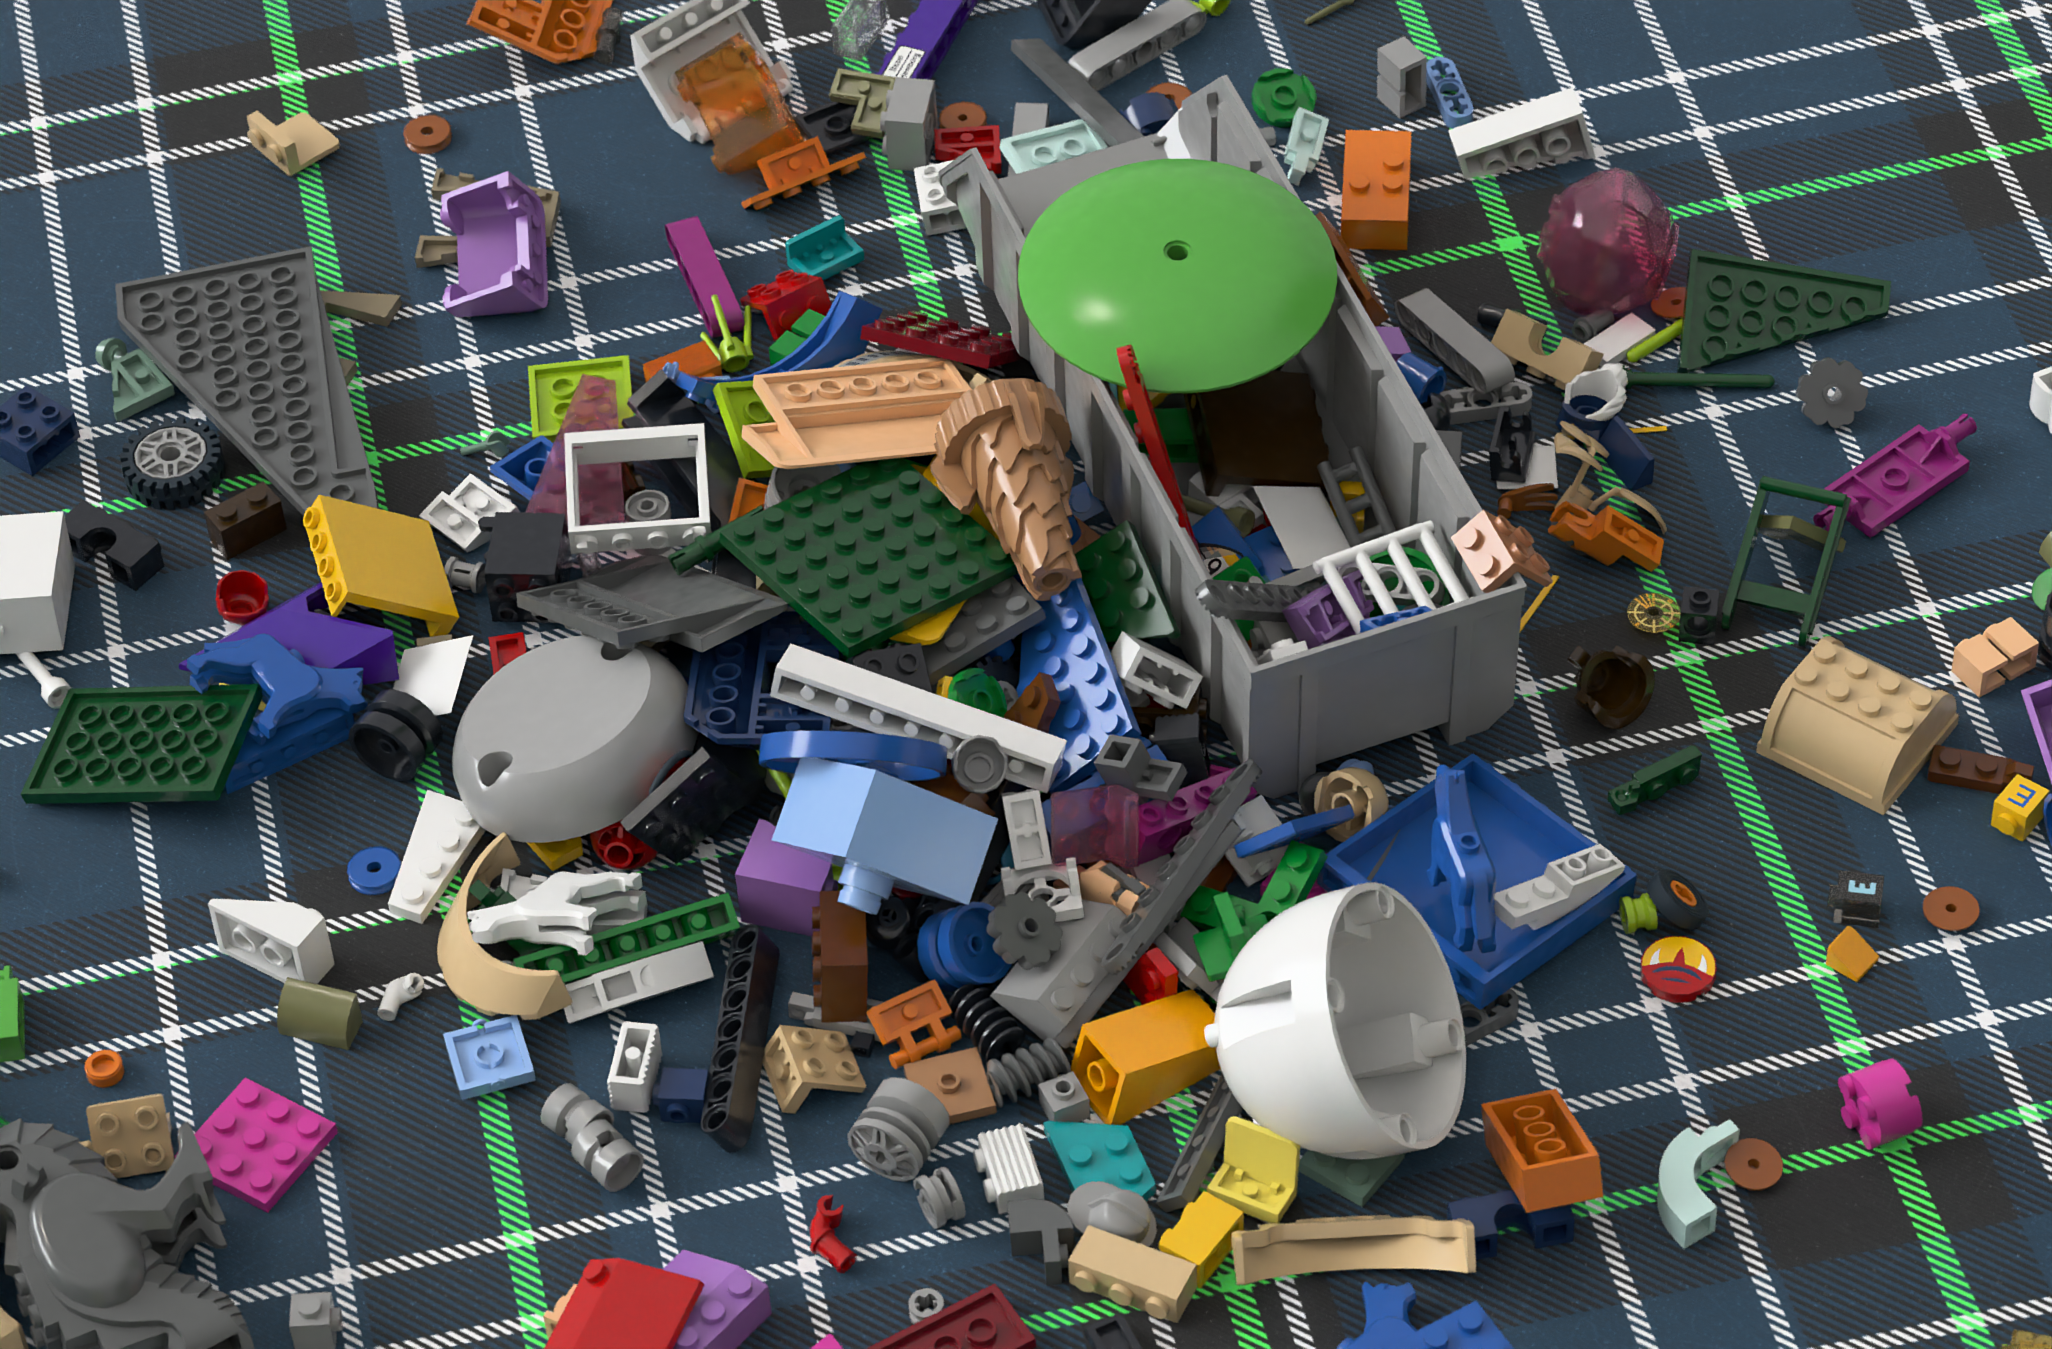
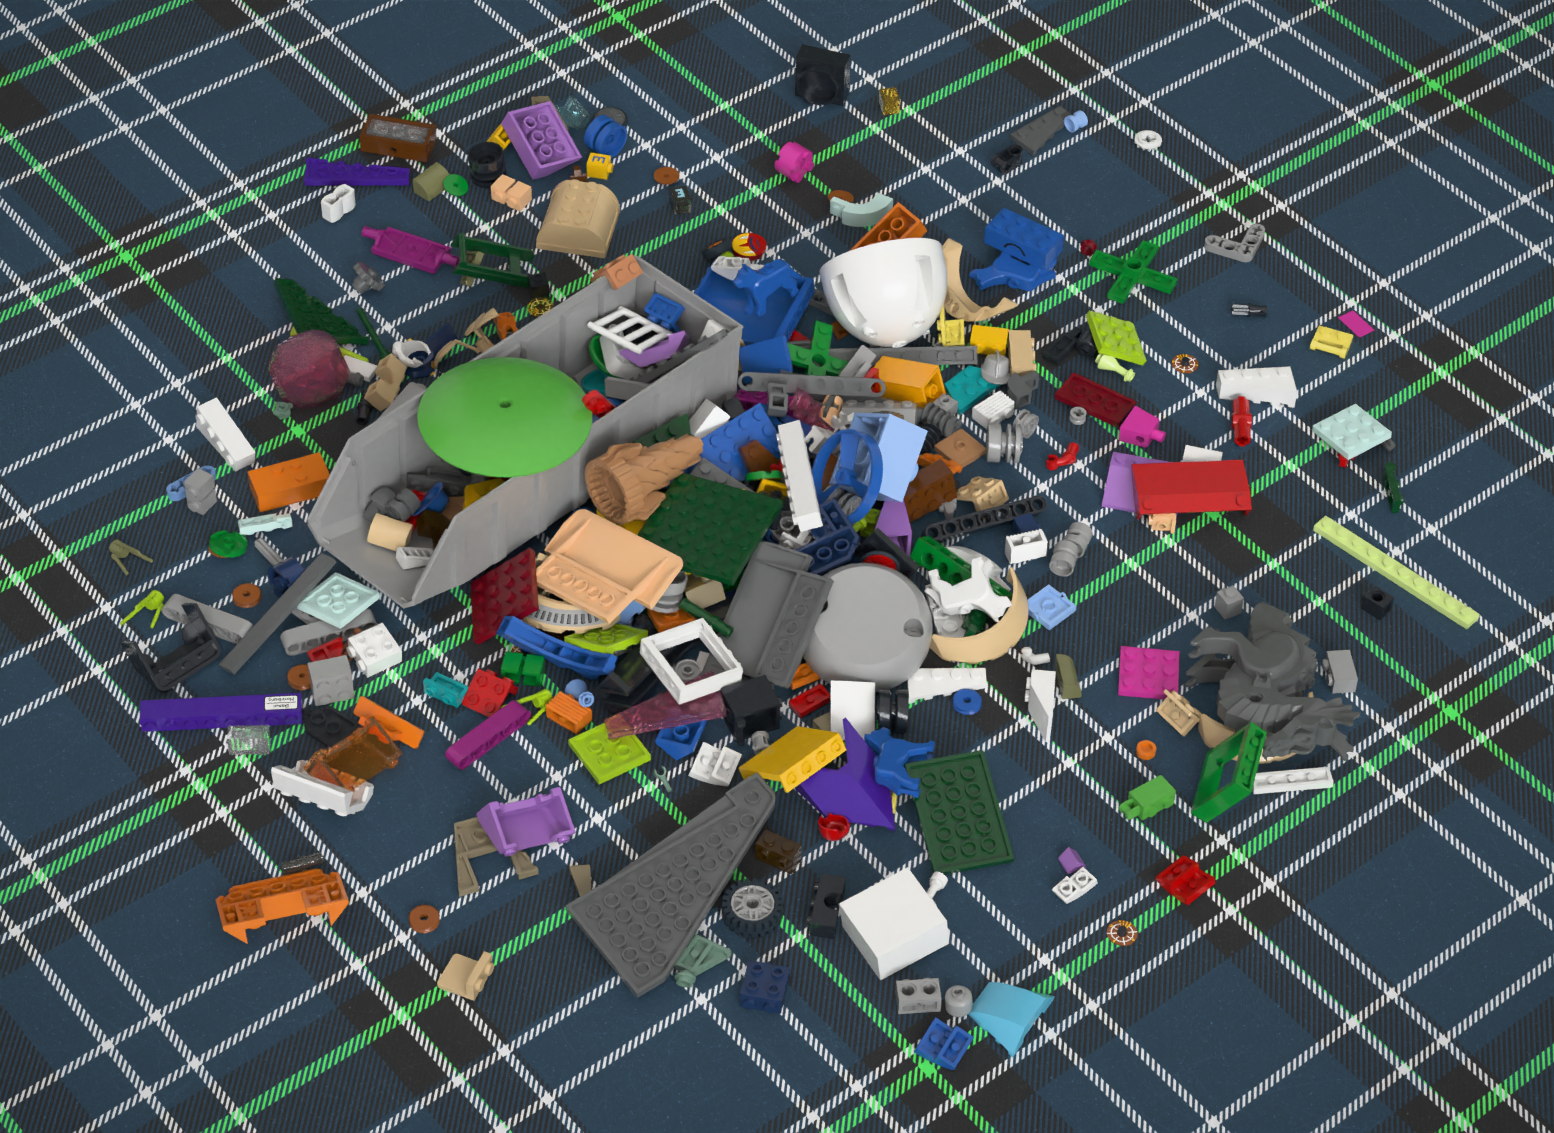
camera: 120 degrees left, 0 degrees up
(868, 93) = (314, 706): olive tile -> none
(979, 764) = (813, 441): light grey hair -> none
(1223, 944) = (844, 355): green bracket -> none
(1851, 954) = (709, 199): light orange slope -> none

